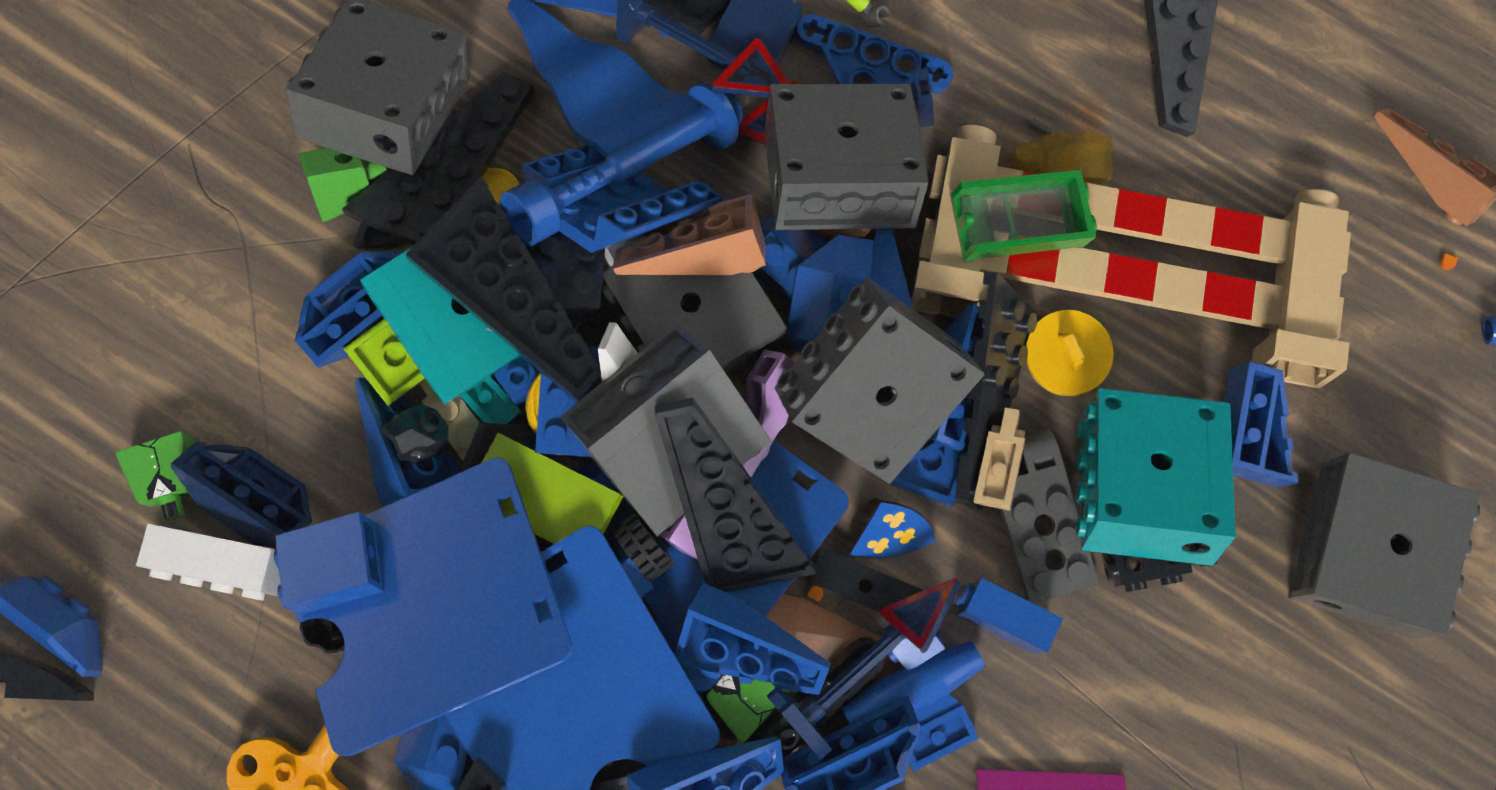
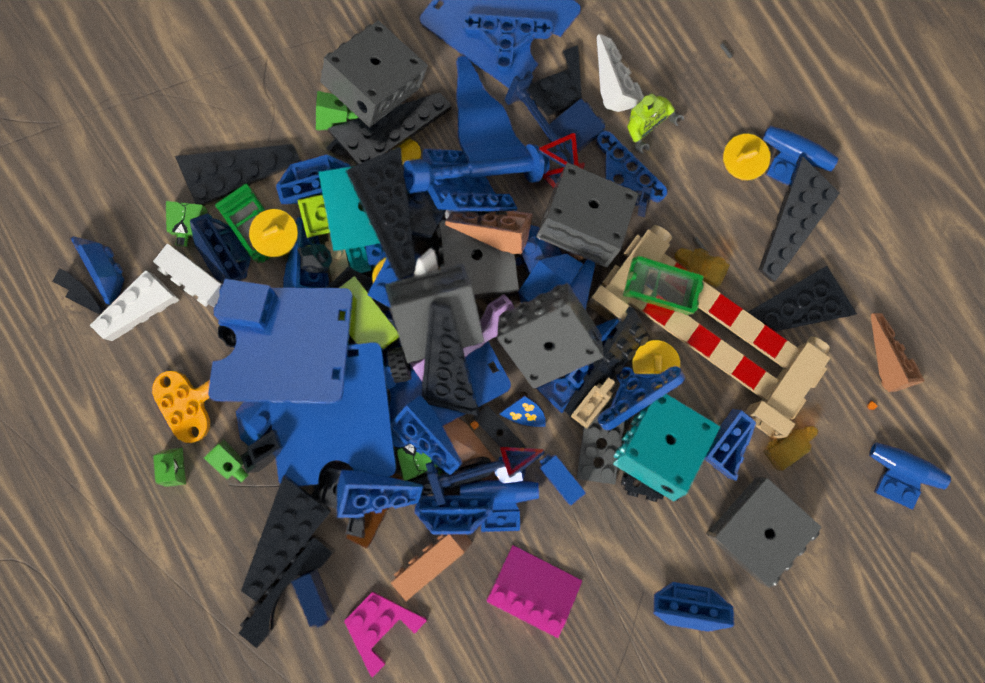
camera: 20 degrees right, 5 degrees up
(134, 659) = (135, 305): none -> white wedge
(196, 362) = (223, 172): none -> black wing
(282, 425) = (239, 212): none -> green door
(326, 422) = (273, 233): none -> yellow shield
(1073, 394) = (645, 387): none -> blue beam
(1261, 145) = (805, 303): none -> black wing
(1334, 732) = (693, 607): none -> blue wedge
(1355, 394) = (790, 448): none -> clear yellow hinge

